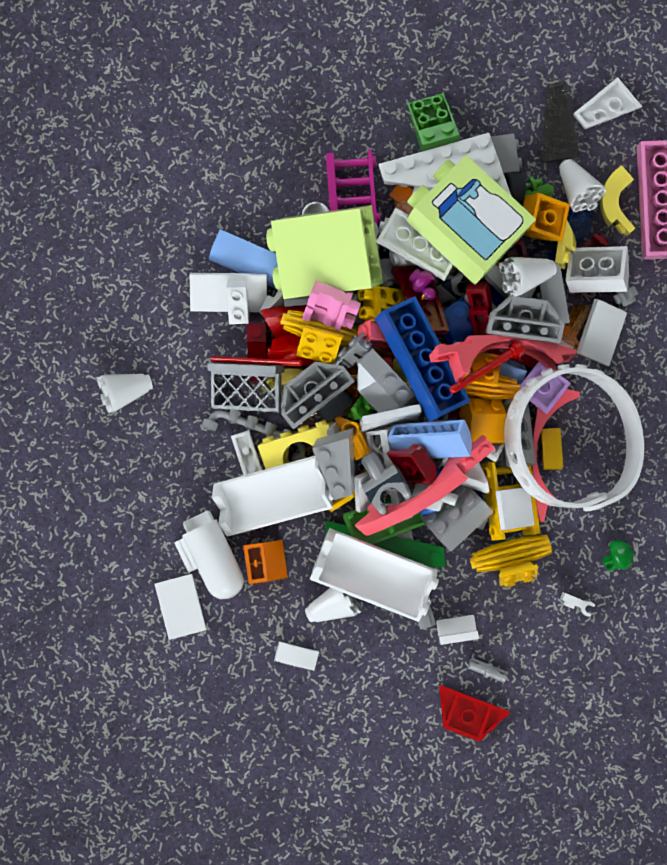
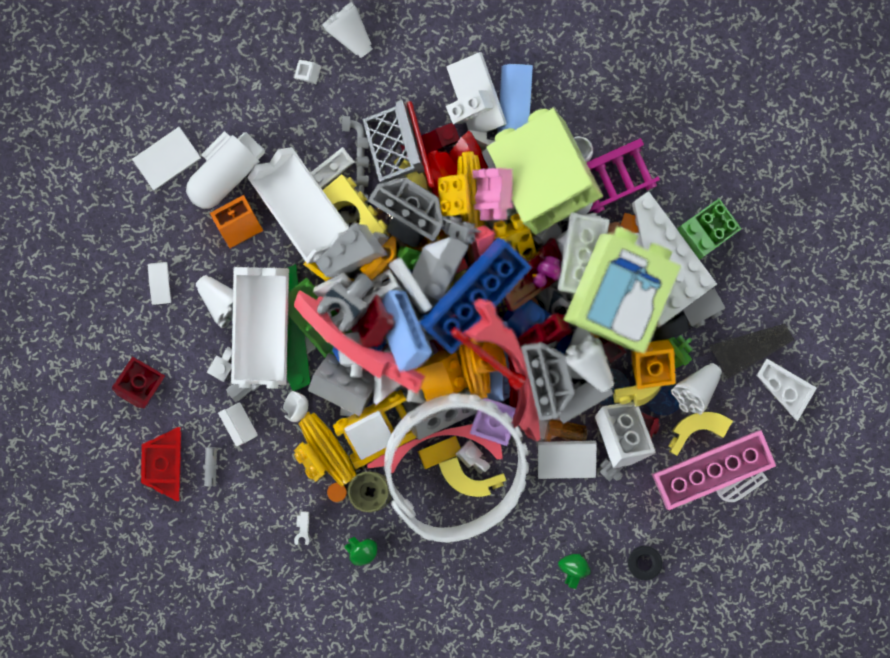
camera: 65 degrees right, 0 degrees up
(146, 443) = (307, 71): none -> white slope
(384, 710) = (138, 383): none -> dark red slope
(397, 625) = (220, 366): none -> white plate
(460, 568) = (296, 406): none -> white hair
(554, 560) = (336, 492): none -> orange tile
(565, 421) = (470, 455): none -> white plate
(576, 533) = (359, 488): none -> olive wheel
(592, 435) = (459, 481): none -> light yellow arch

